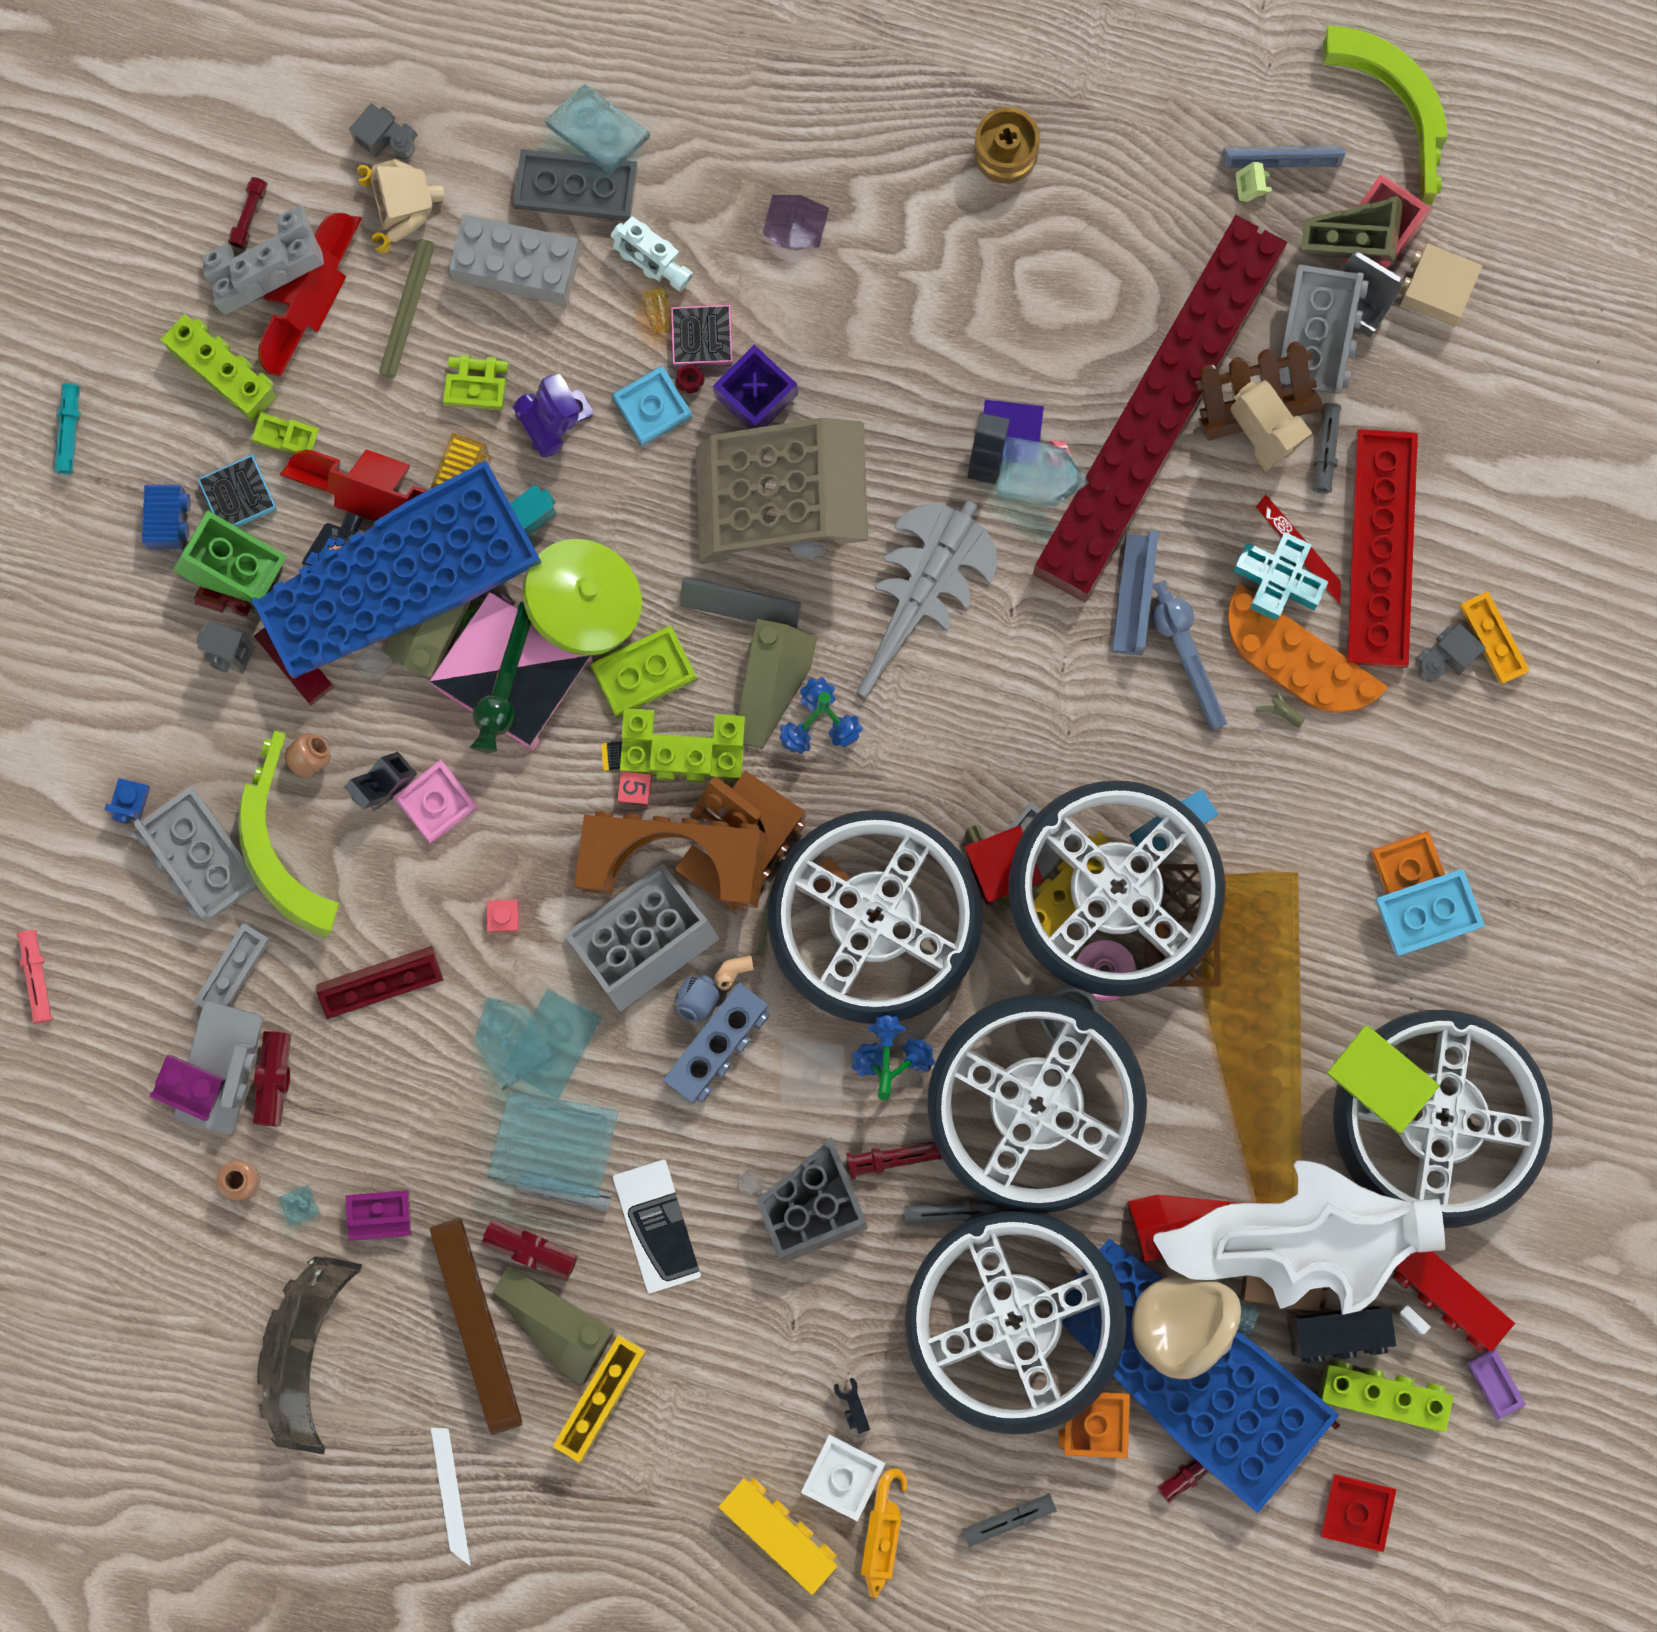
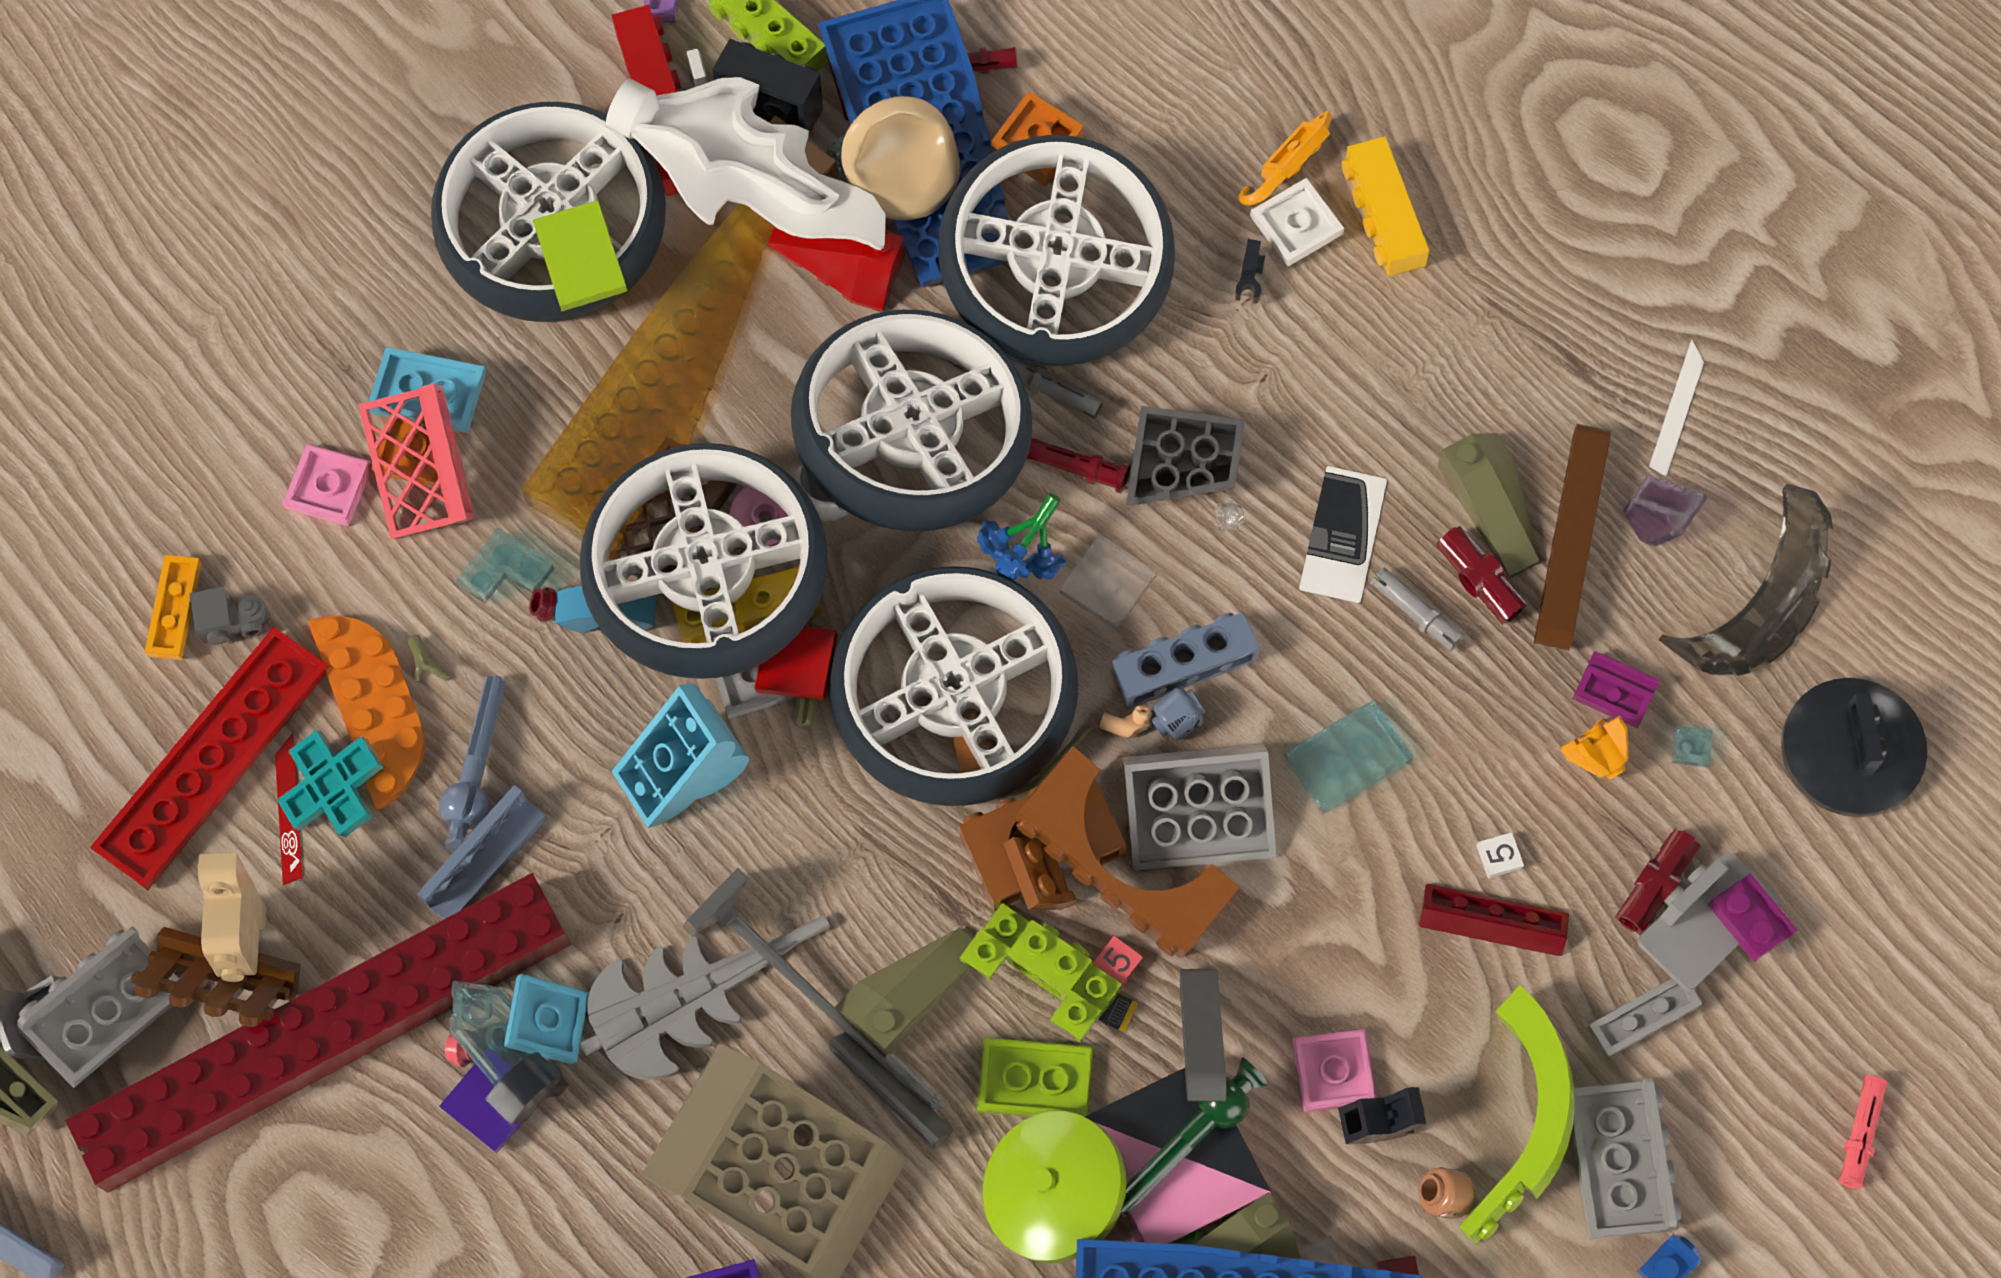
camera: 150 degrees left, 10 degrees down
(175, 1275) = (1854, 747): none -> black bracket
(238, 1180) = (1744, 796): nougat head -> none
(365, 1156) = (1601, 748): none -> light orange brick
(399, 1032) = (1500, 855): none -> white tile
(416, 1389) = (1662, 510): none -> clear purple slope
(503, 916) = (1328, 911): coral plate -> none
(511, 1041) = (1390, 778): clear light blue tile -> none
(536, 754) = (1202, 1035): none -> dark grey beam
(553, 1145) = (1403, 655): clear light blue piece -> none
(599, 1398) = (1487, 402): yellow brick -> none
(818, 697) = (867, 892): blue plant -> none
(940, 651) = (721, 908): none -> dark grey piece
(1009, 505) = (546, 1019): none -> medium azure tile
(1038, 739) = (679, 757): none -> medium azure brick
(1043, 1505) = (1166, 110): dark grey pin -> none
(1223, 802) = (543, 604): none -> dark red plate
(1252, 182) = (50, 1222): yellowish green tile -> none
(1276, 821) = (502, 558): none -> clear light blue plate
(1323, 480) = (179, 899): dark grey pin -> none
(1372, 862) = (445, 454): none -> coral fence
(1453, 801) = (327, 485): none -> bright pink tile

